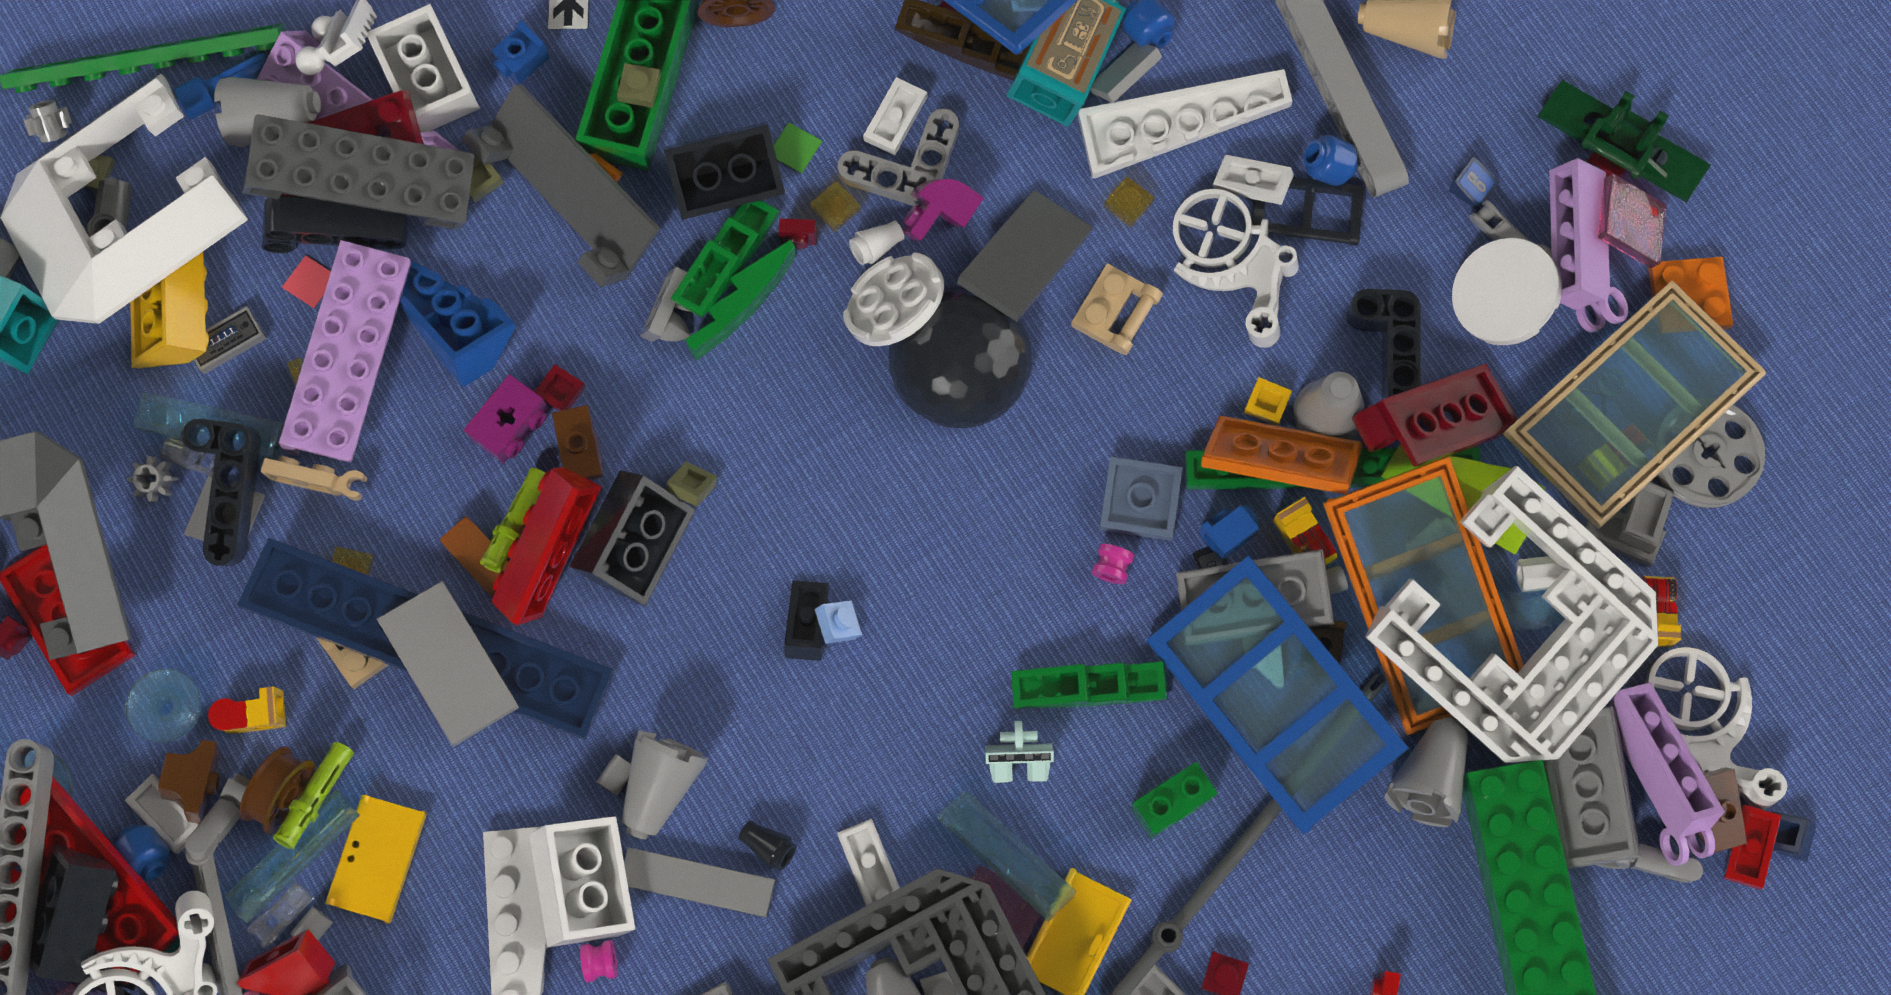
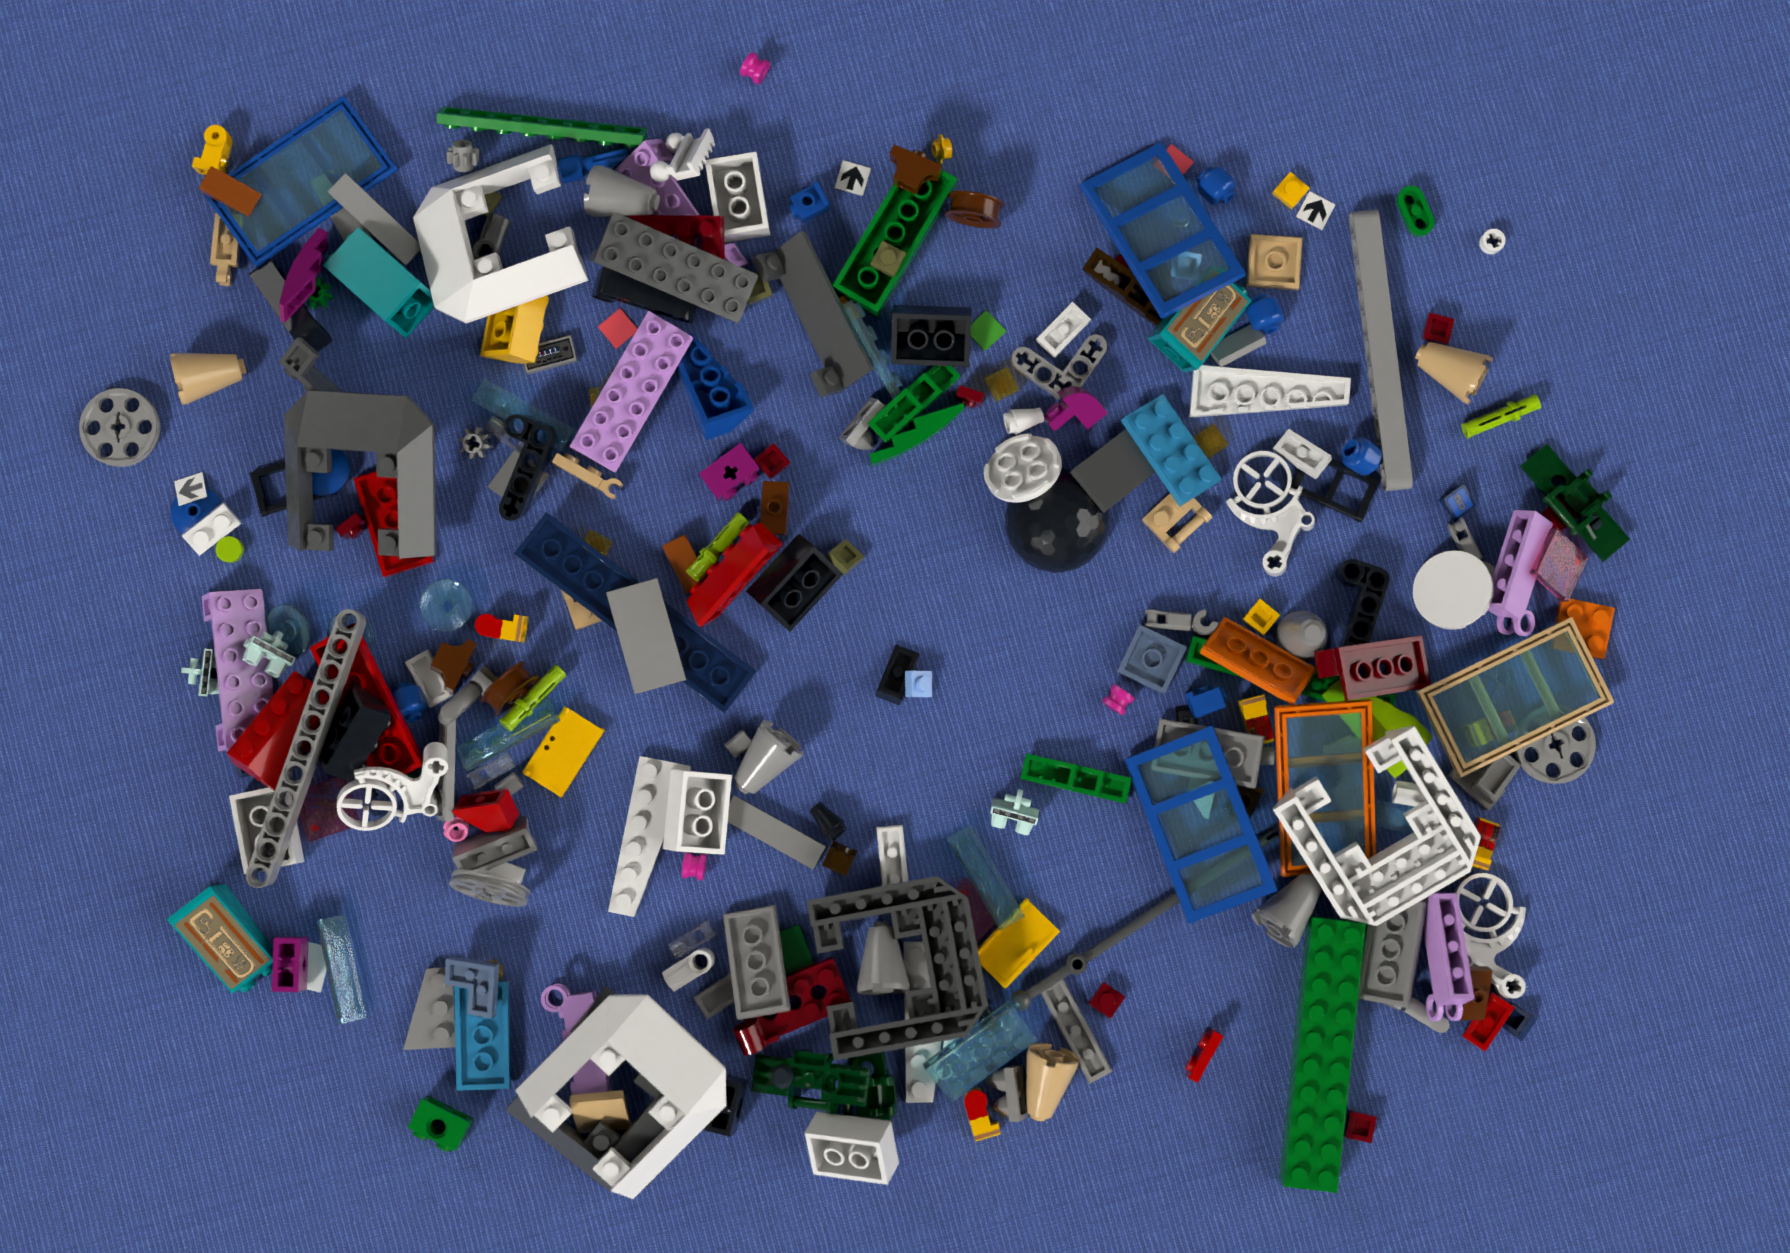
camera: 20 degrees right, 10 degrees up
(688, 241) = (877, 357): none -> clear light blue plate
(797, 889) = (839, 858): none -> dark brown brick
(1082, 223) = (1171, 450): none -> dark azure plate
(1163, 438) = (1180, 621): none -> light grey piece
(1174, 800) = (1109, 874): green brick -> none
(1521, 39) = (1529, 404): none -> lime pin

